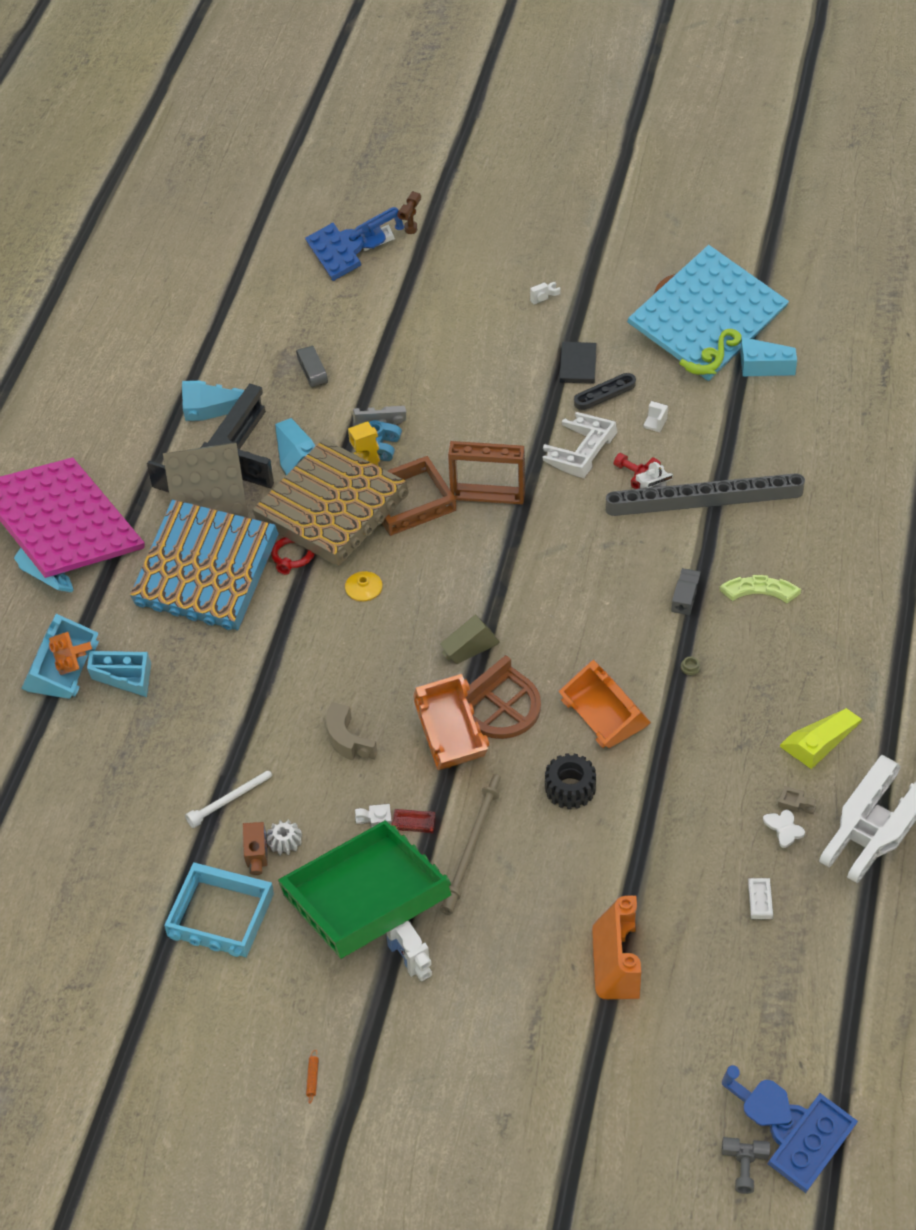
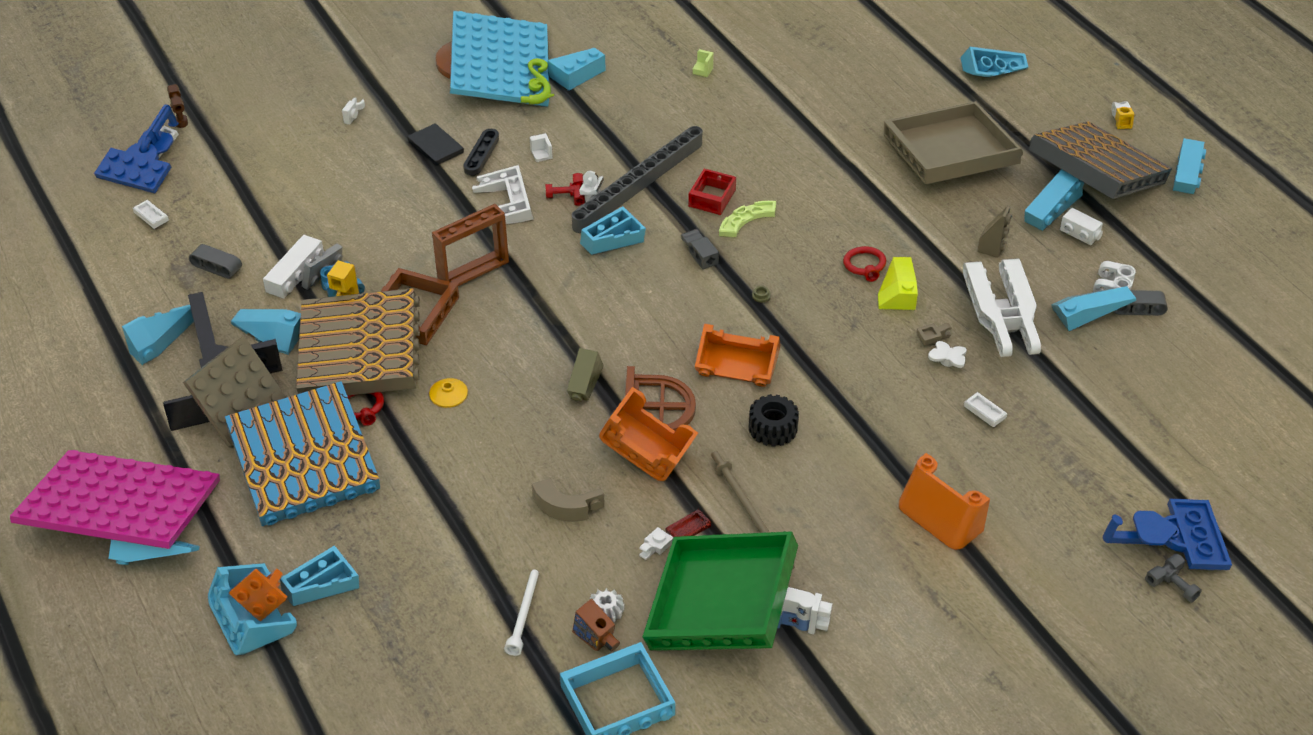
camera: 45 degrees left, 5 degrees down
(308, 297) = (150, 214): none -> white plate
(340, 410) = (290, 268): none -> white brick
(624, 530) = (612, 232): none -> medium azure wedge
(733, 546) = (709, 202): none -> red window
(807, 708) = (870, 272): none -> red piece
(884, 421) = (704, 63): none -> yellowish green panel

